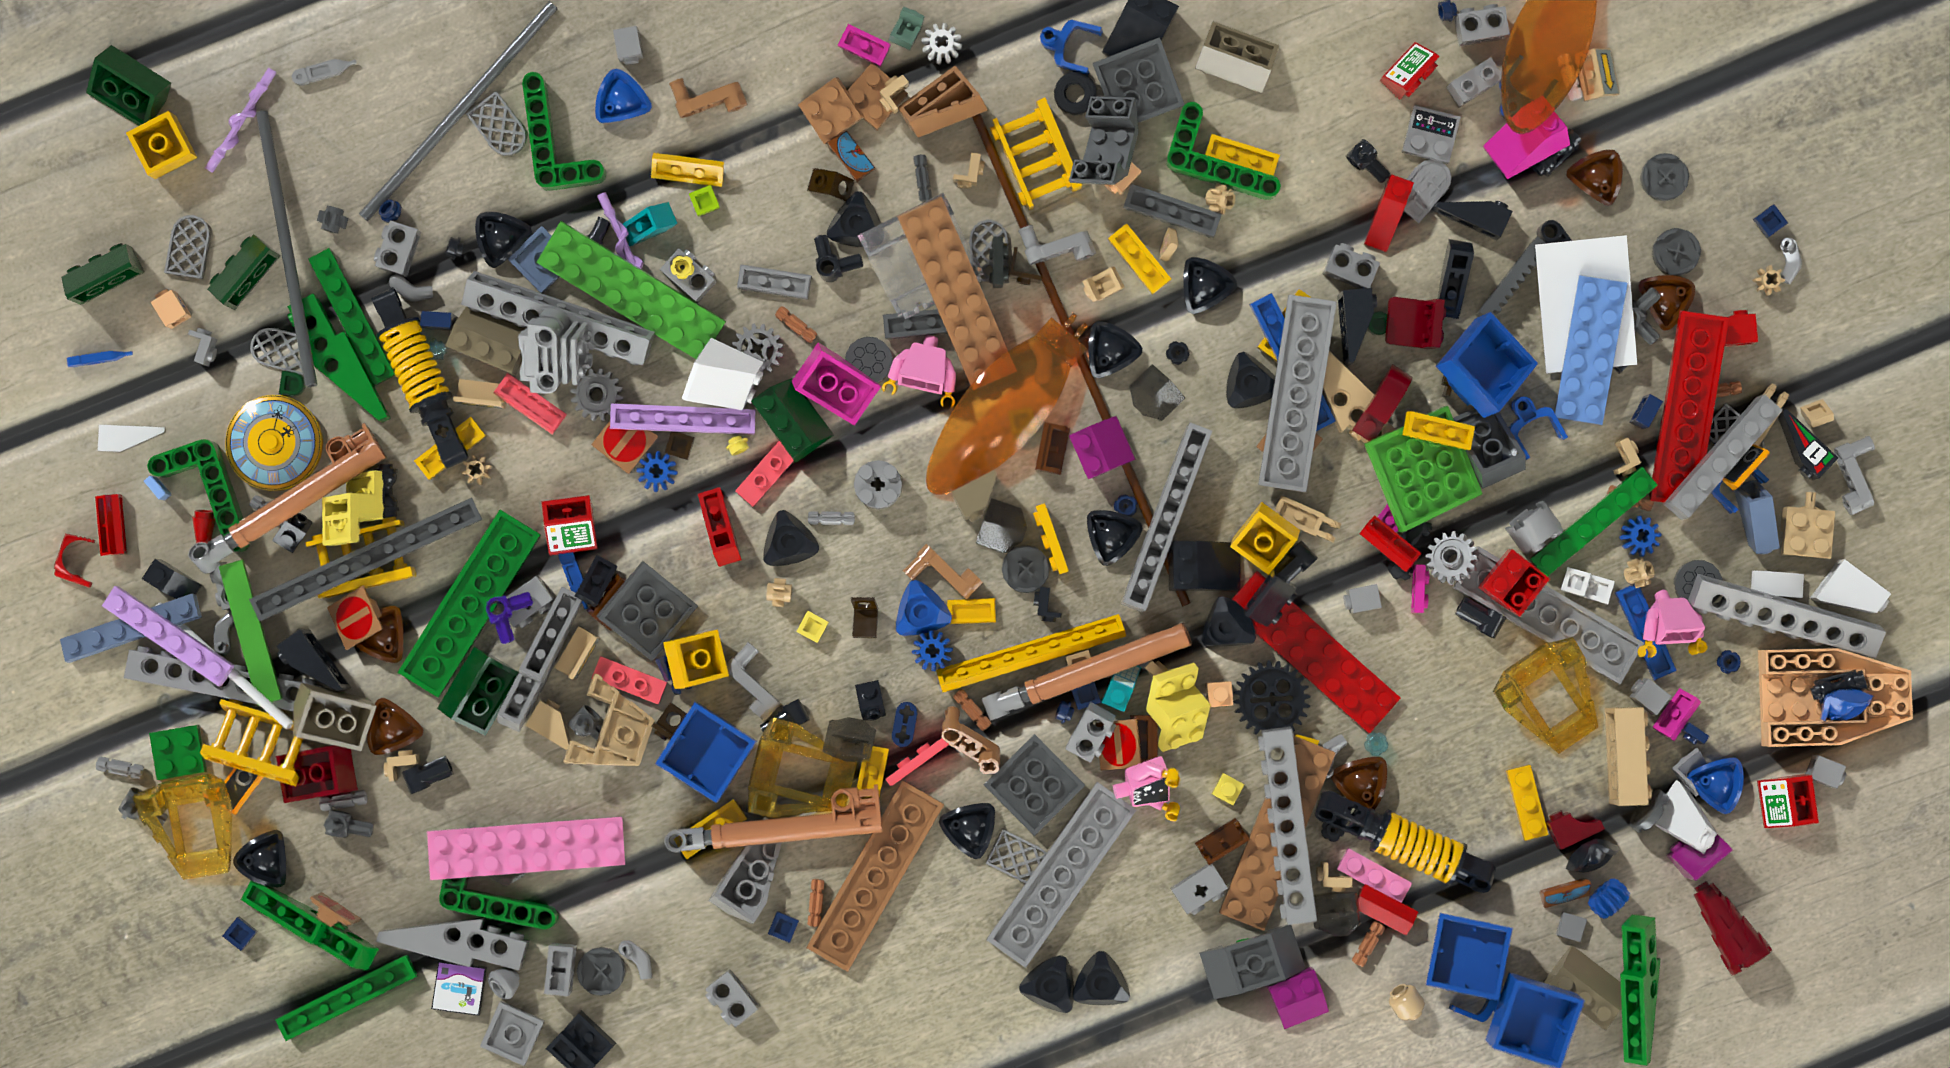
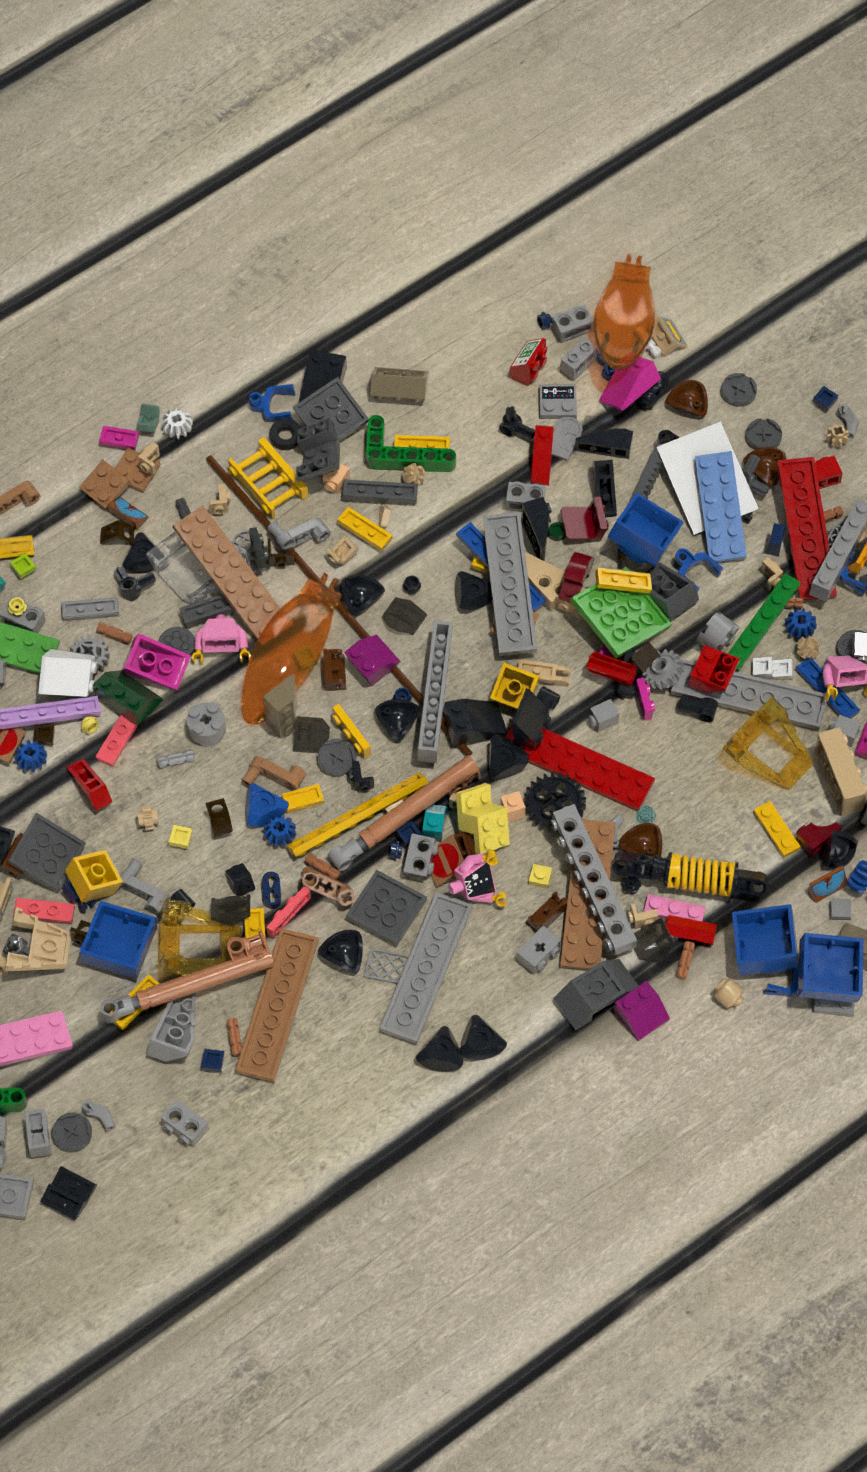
camera: 10 degrees left, 25 degrees down
(788, 541) = (146, 782): black hat -> none
(942, 103) = (187, 458): medium nougat wedge -> none
(1205, 284) = (419, 533): black hat -> none
(1433, 539) = (644, 657): none -> dark brown bracket

